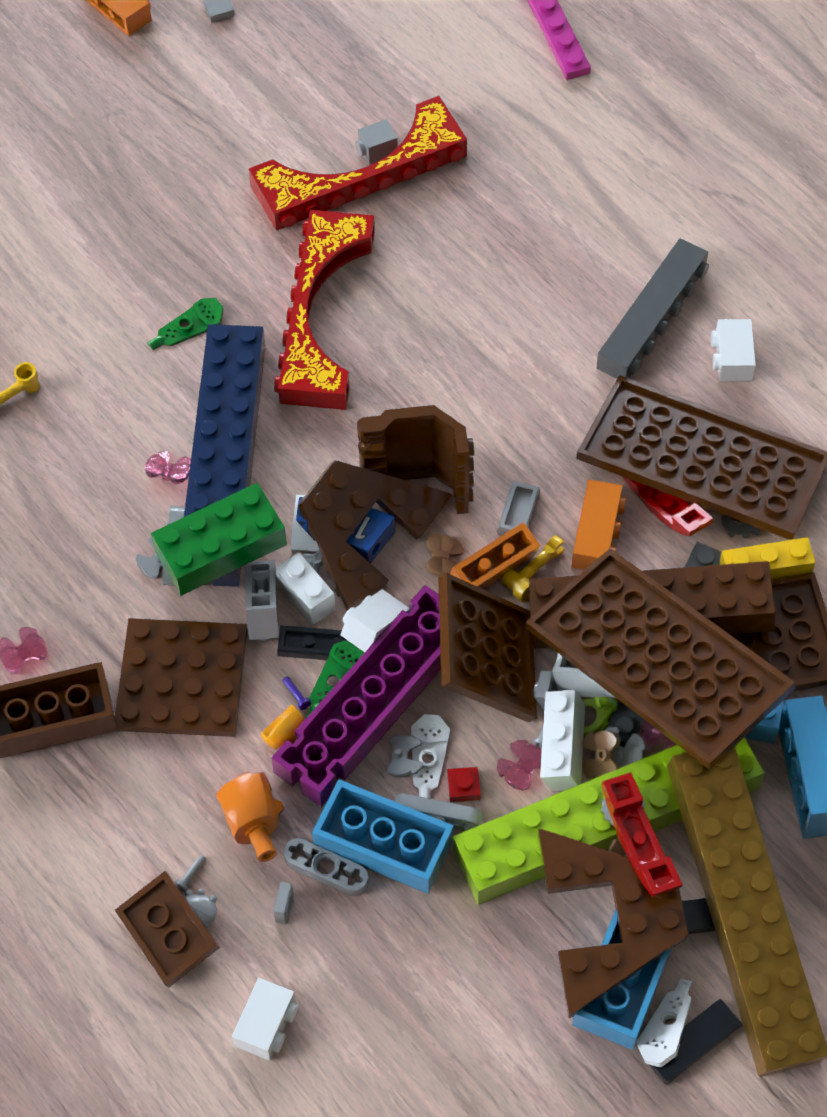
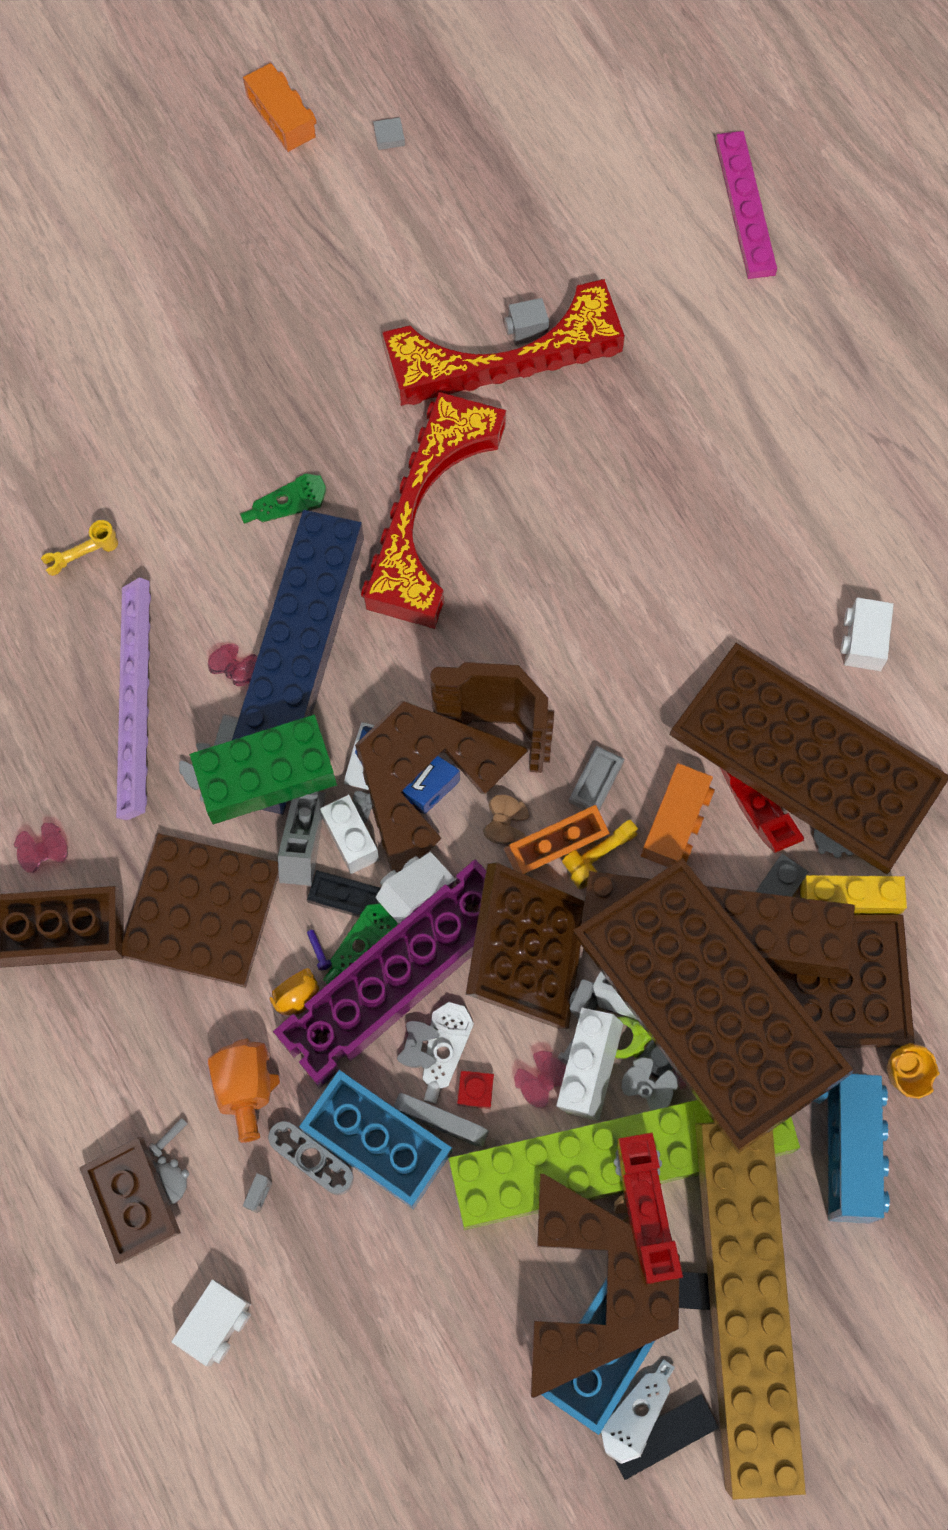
camera: 10 degrees right, 10 degrees up
(82, 510) = (133, 700): none -> lavender plate
(604, 743) = (634, 1077): medium nougat piece -> none
(652, 310) = (787, 571): dark grey brick -> none

